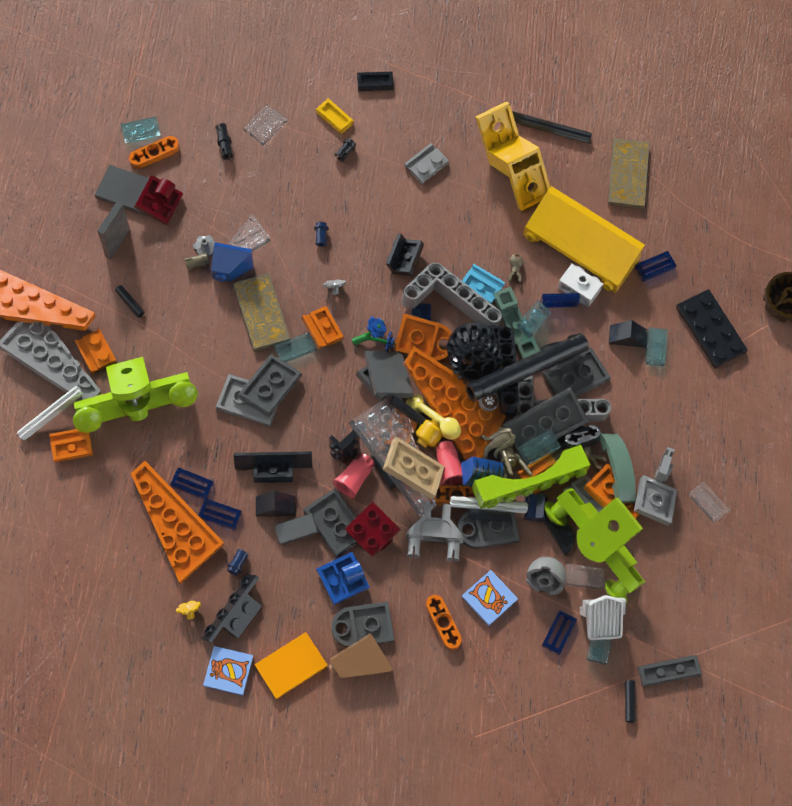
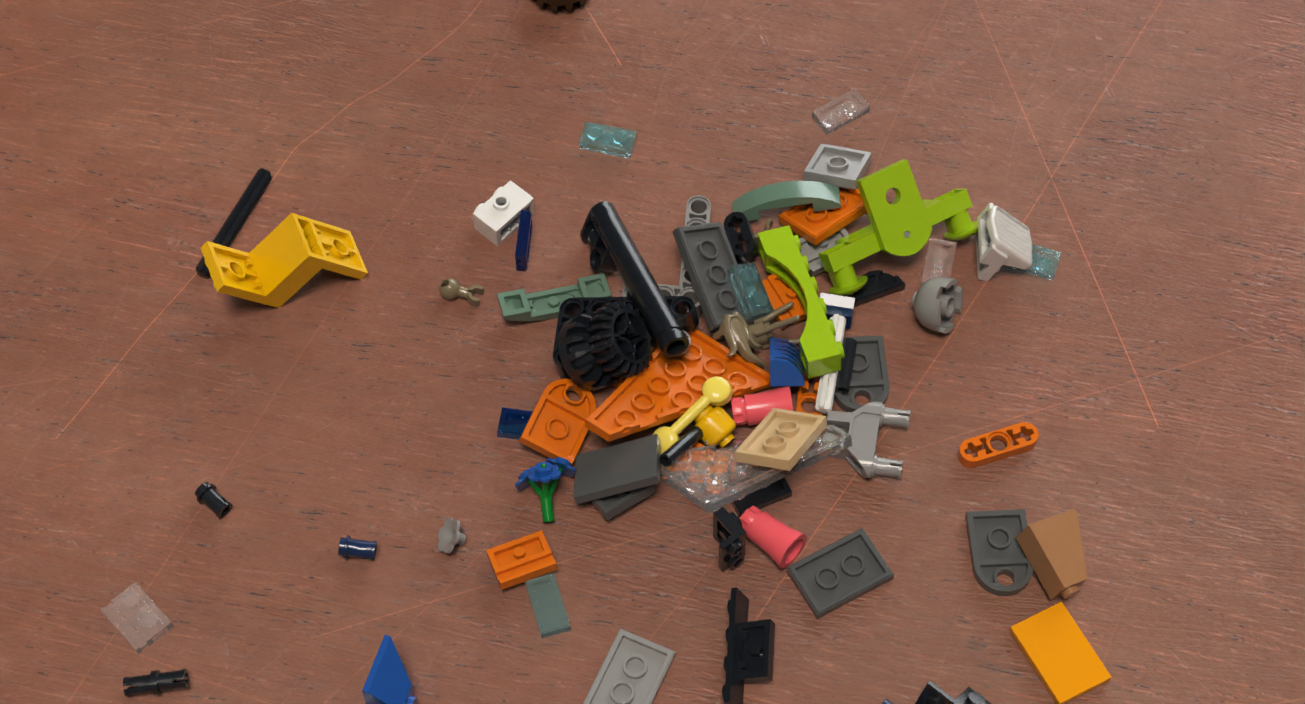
camera: 80 degrees left, 10 degrees down
(250, 235) = (342, 656): clear wing -> none
(261, 312) = (478, 650): dark tan tile -> none
(269, 385) = (611, 643): dark grey tile -> none
(275, 504) = (808, 657): black slope -> none
(296, 529) = (850, 625): dark grey tile -> none
(334, 116) = (146, 512): yellow tile -> none
(343, 578) = (929, 568): blue plate -> none
(372, 529) = (860, 517): dark red plate -> none
(375, 81) = (96, 447): black tile -> none
(404, 255) = (419, 431): black bracket -> none
(426, 163) = (261, 389): light grey plate -> none
(453, 294) = (468, 387): light grey beam -> none
(483, 282) = (481, 336): medium azure plate -> none
(489, 598) = (963, 384): light blue tile -> none
(533, 319) = (549, 275): clear light blue plate -> none
(551, 647) = (1011, 309): clear blue tile -> none
(579, 372) = (649, 235): dark grey tile -> none
(584, 238) = (432, 194): yellow windscreen -> none
(628, 173) = (333, 135): dark tan tile -> none
(628, 334) = (586, 170): black slope -> none
(629, 701) = (1109, 237): black piece -> none
(642, 272) = (490, 140): clear blue tile -> none
(664, 468) = (793, 146): light grey plate -> none
(669, 671) = (1068, 189): dark grey tile -> none
(711, 328) = (589, 74): black piece -> none

